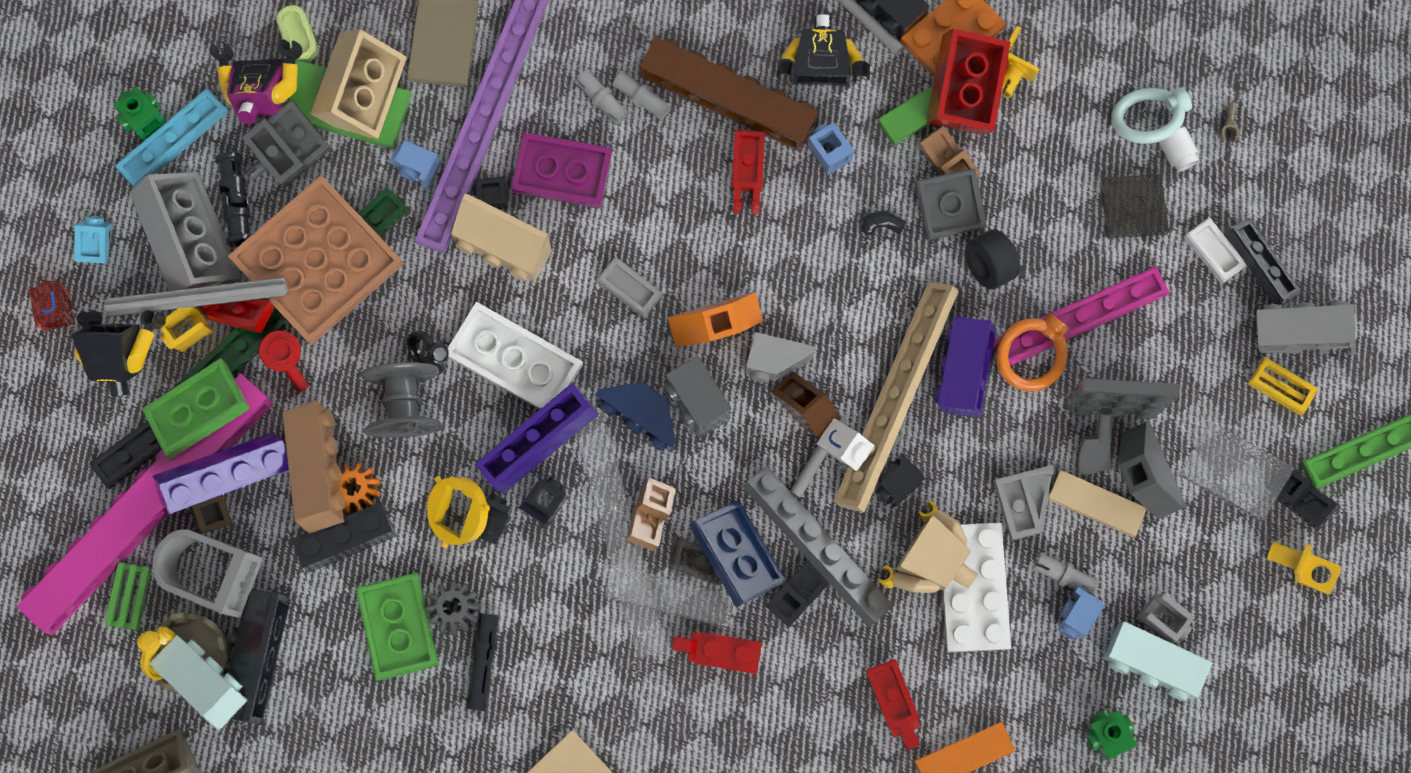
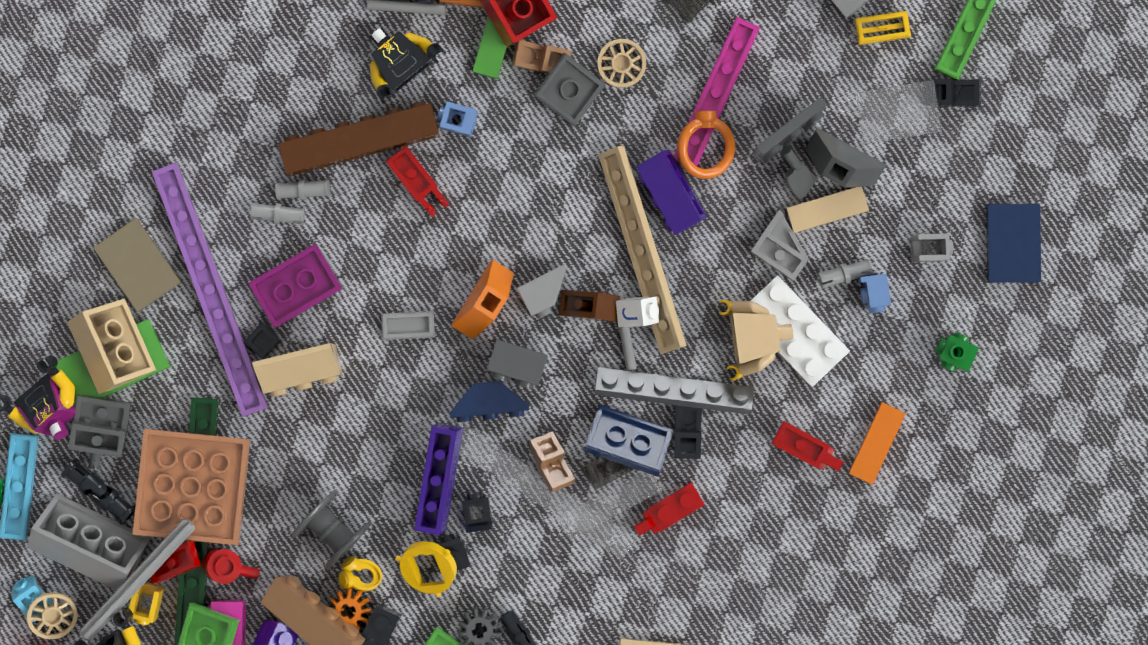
camera: 35 degrees left, 10 degrees up
(96, 269) = (52, 615): none -> tan wheel
(295, 26) = (34, 343): yellowish green tile -> none
(376, 461) = (348, 580): none -> yellow piece
(416, 163) = (195, 365): medium blue brick -> none
(436, 352) = (325, 481): black piece -> none
(512, 357) = (375, 438): white plate -> none
(882, 219) = (532, 138): black arm -> none
(899, 482) = (691, 305): black window -> none
(992, 259) = (628, 105): black tyre -> none
(1018, 221) = (621, 63): none -> tan wheel
(1157, 662) = (947, 281): light aqua brick -> none
(1248, 681) = (1013, 243): none -> dark blue tile
(1303, 565) = (989, 137): yellow bracket -> none

